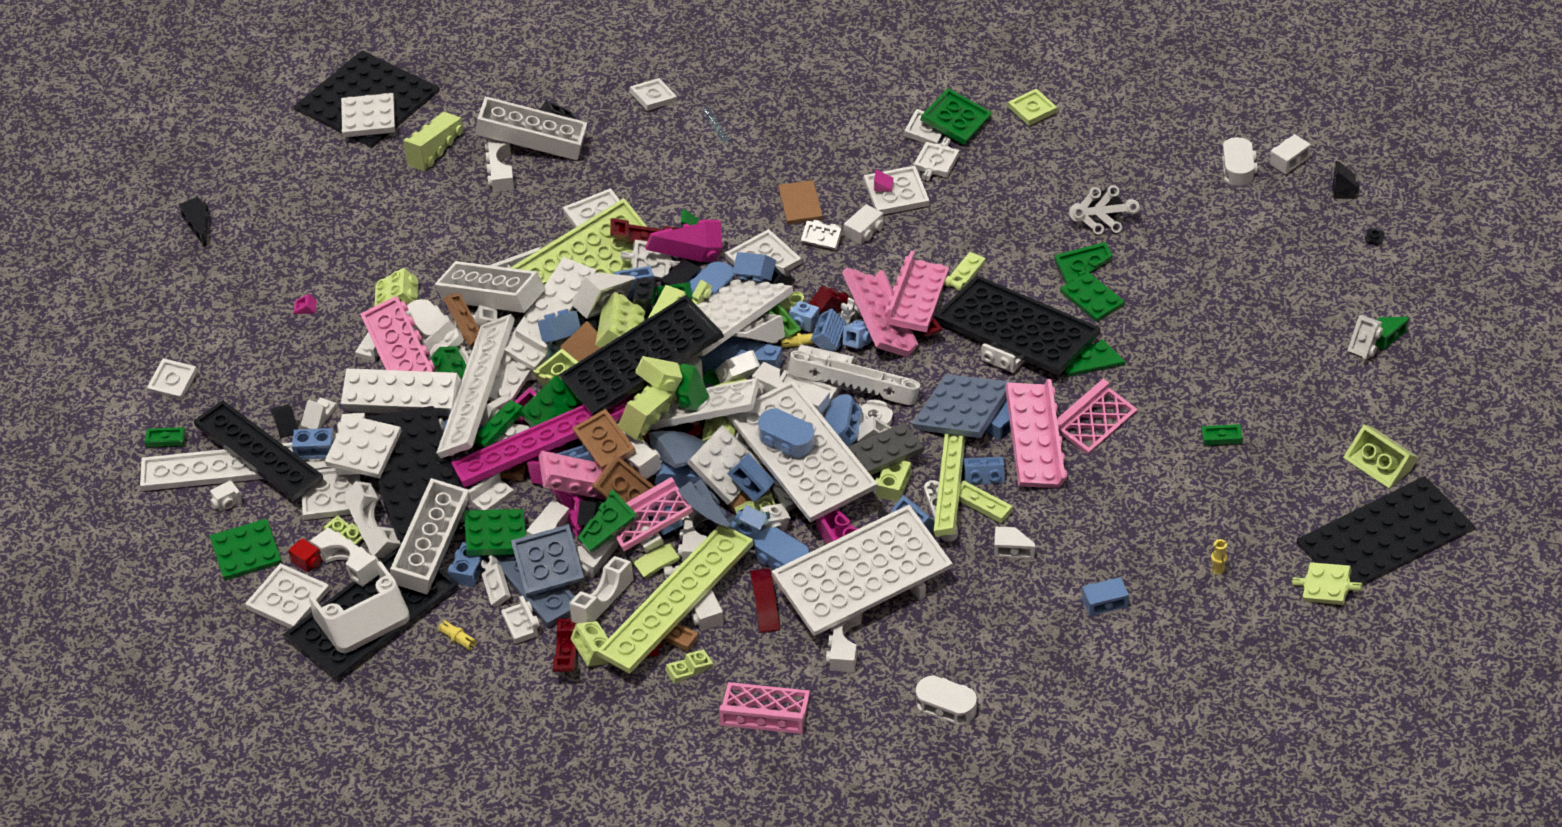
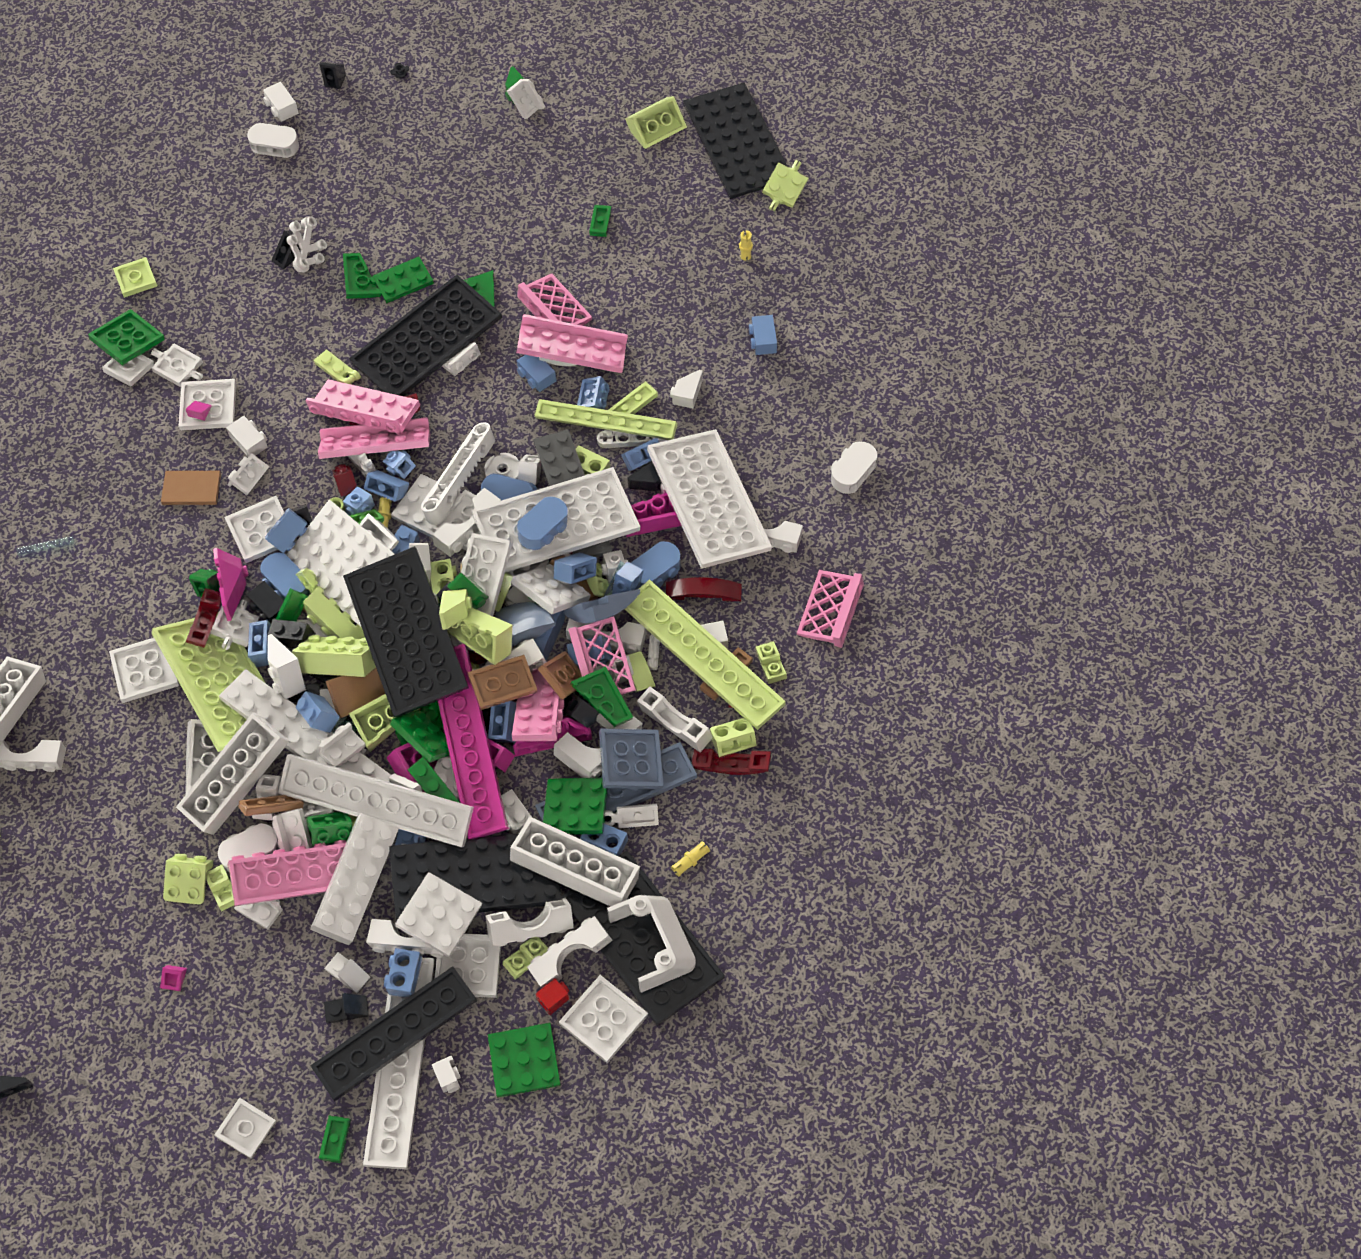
camera: 80 degrees left, 15 degrees up
(520, 621) = (688, 797): white bracket -> none
(962, 406) = (516, 396): sand blue plate -> none

